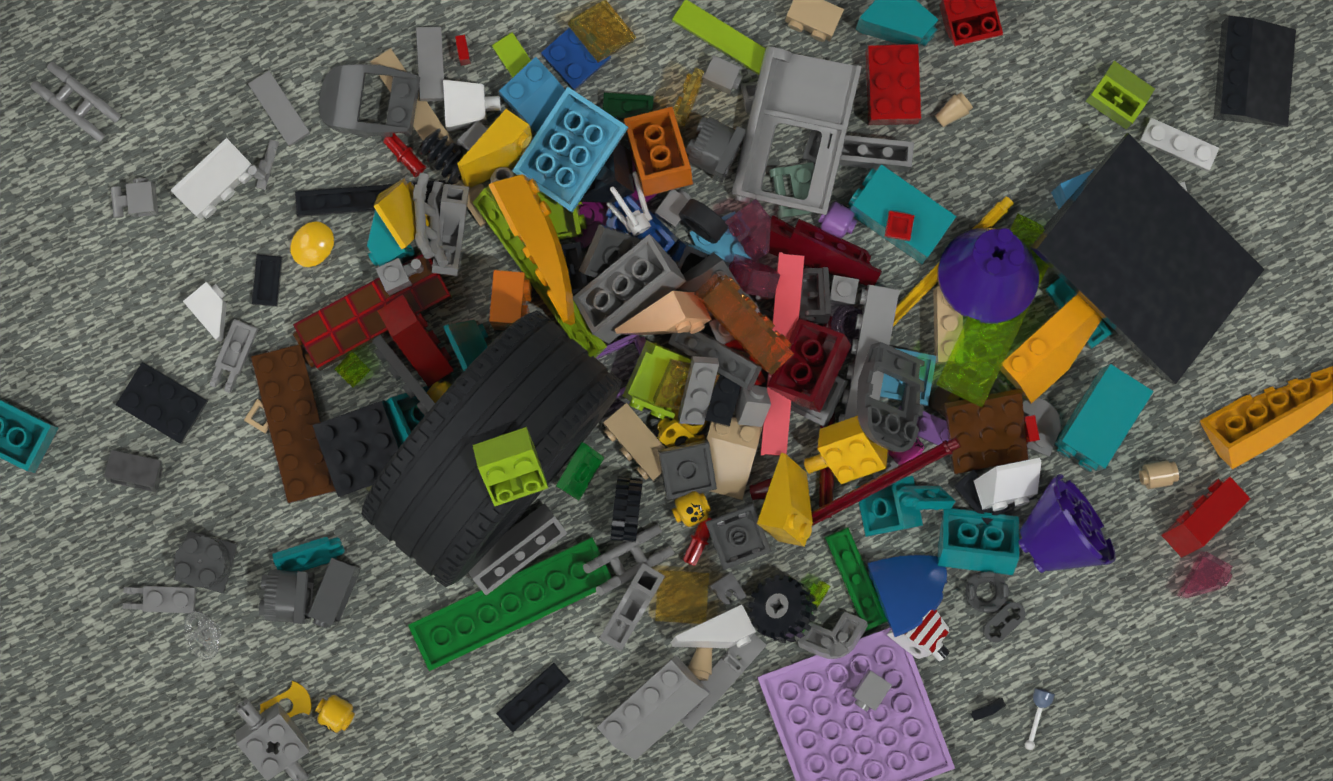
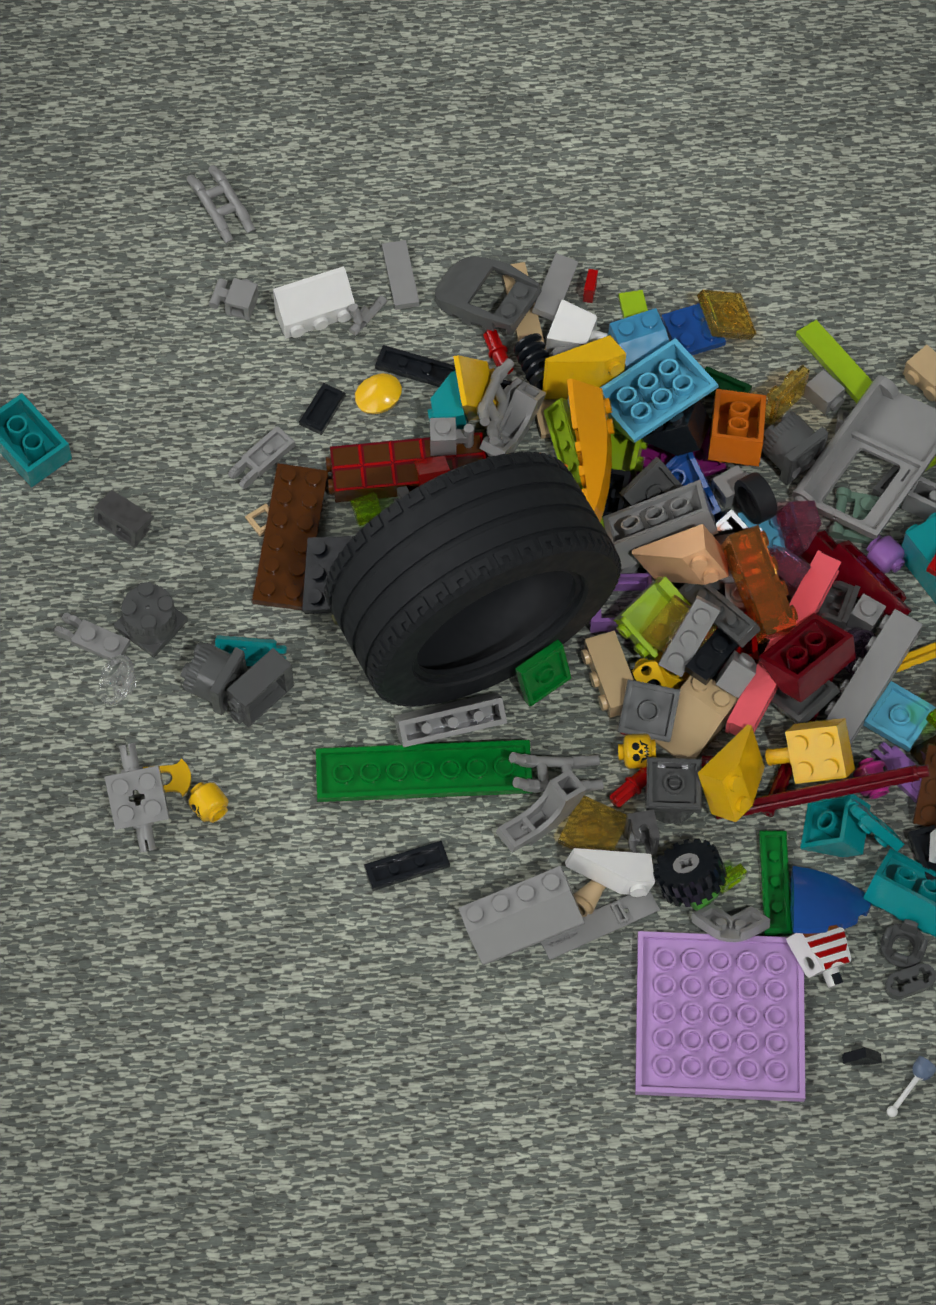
camera: 30 degrees right, 20 degrees down
(161, 403) = (176, 473): black plate -> none
(209, 308) = (258, 408): white slope -> none
(510, 466) = (490, 544): lime slope -> none
(626, 509) = (574, 721): black wheel -> none
(635, 221) = (691, 472): white plant -> none
(871, 691) = (748, 984): light grey brick -> none
(881, 422) = (857, 729): dark grey slope -> none

